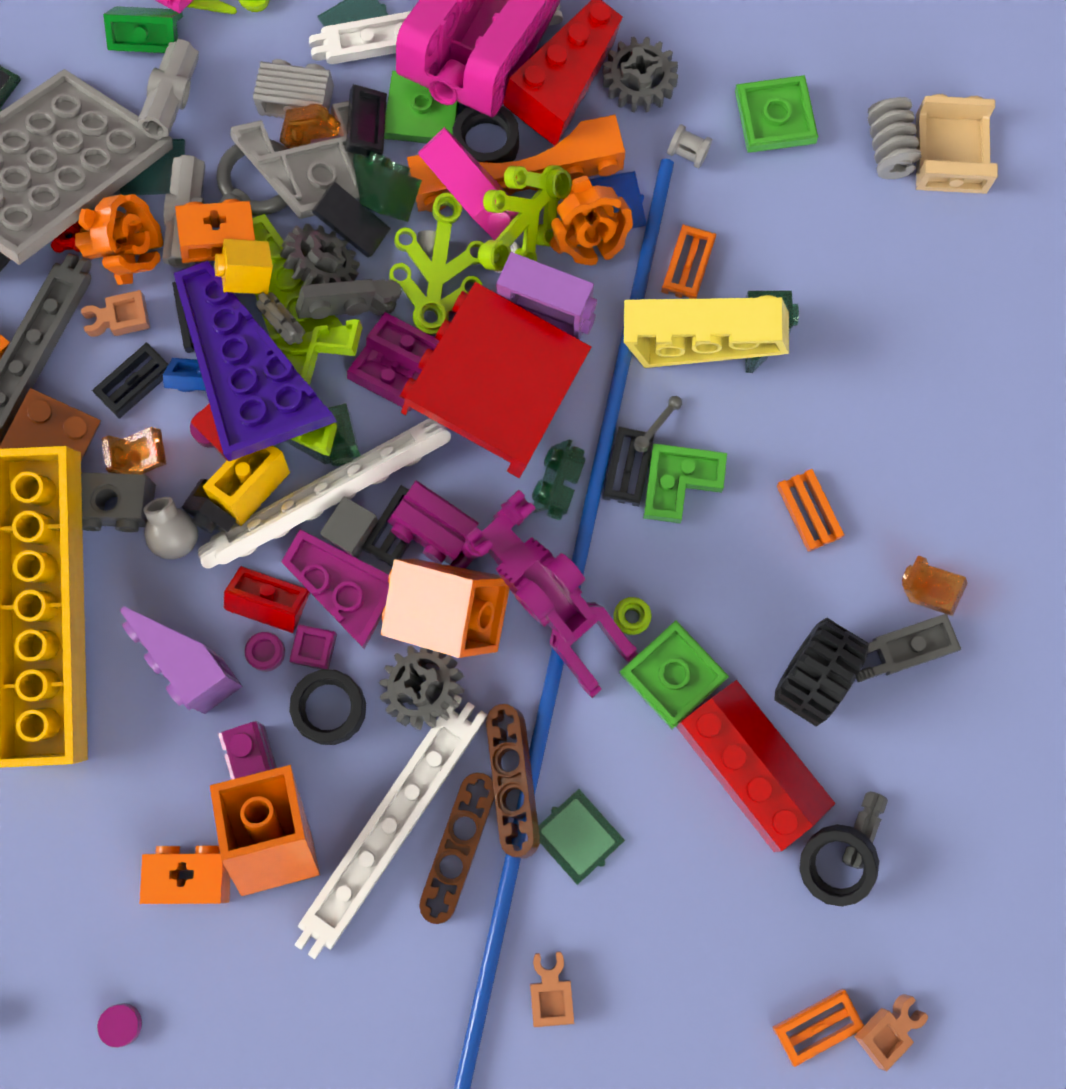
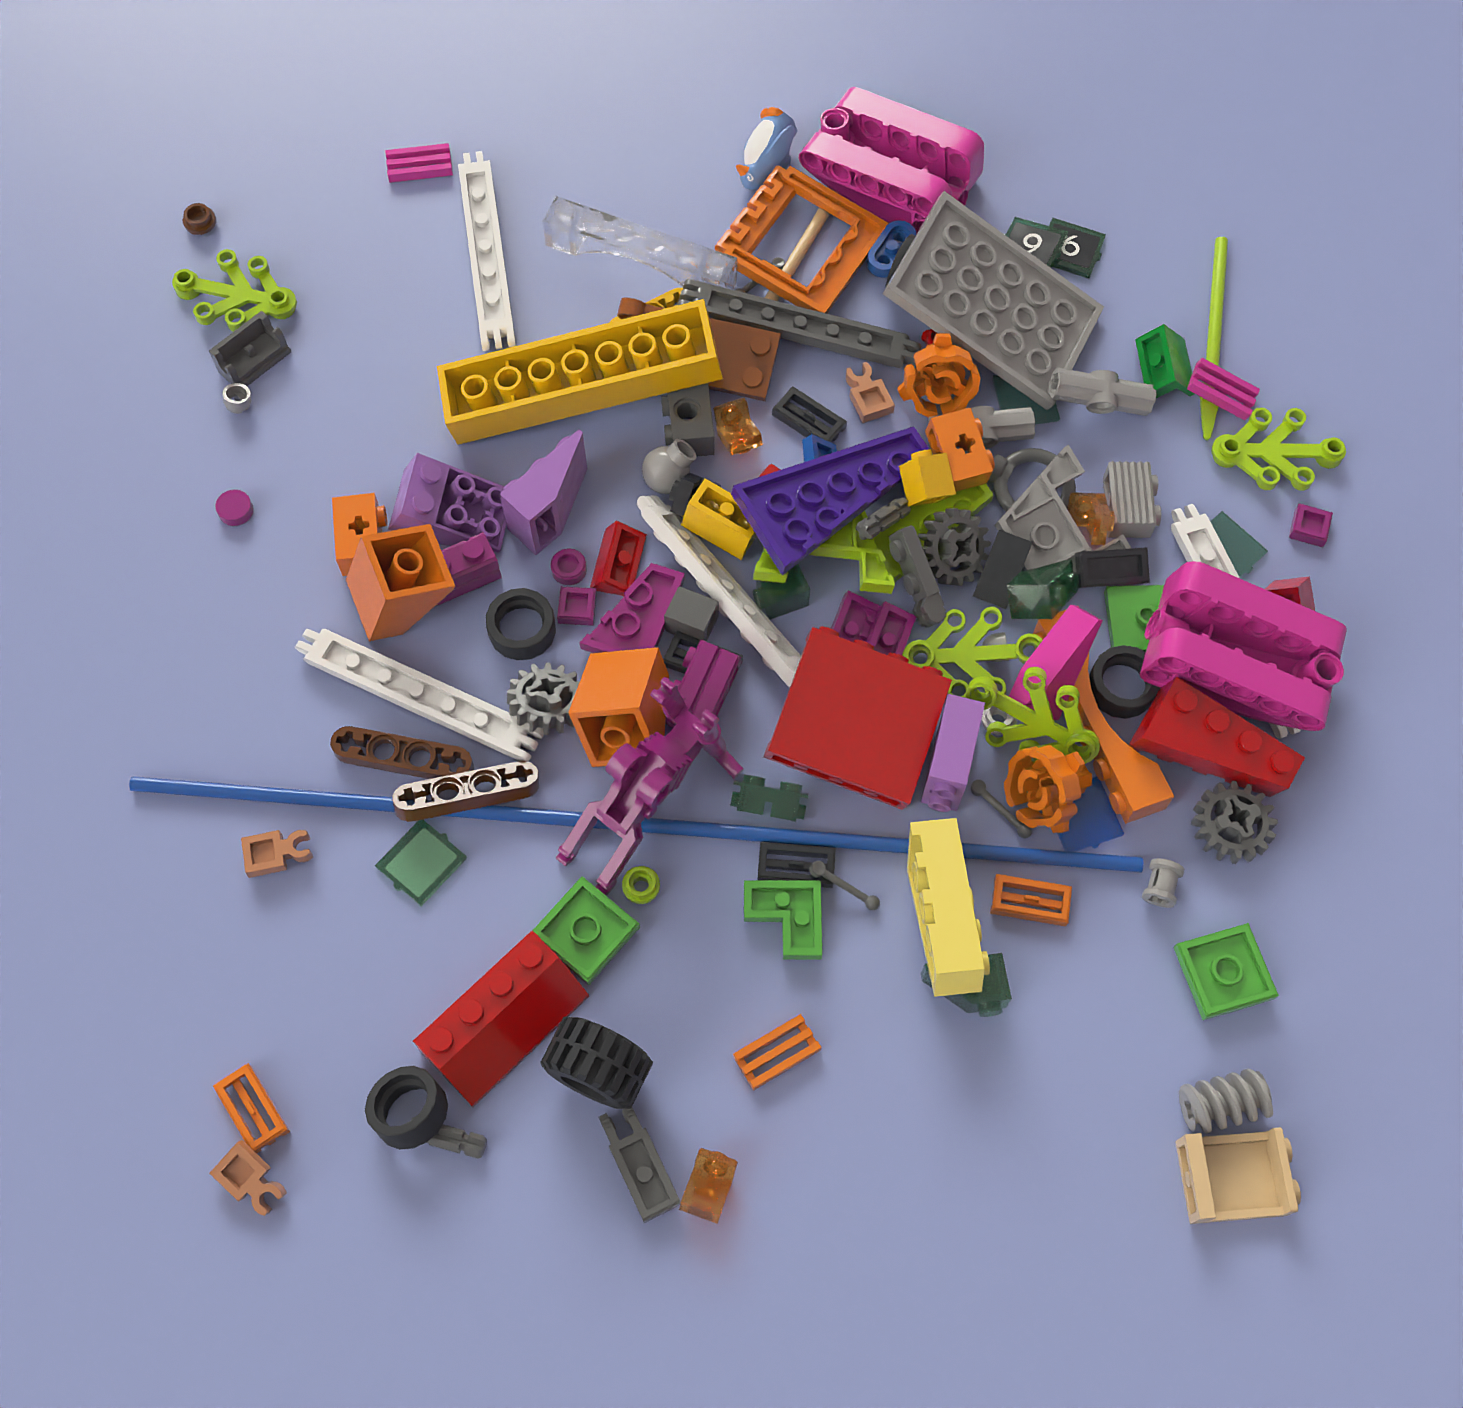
camera: 80 degrees right, 10 degrees down
(168, 773) = (449, 500): none -> medium lavender slope
(620, 257) = (978, 788): none -> dark grey hinge

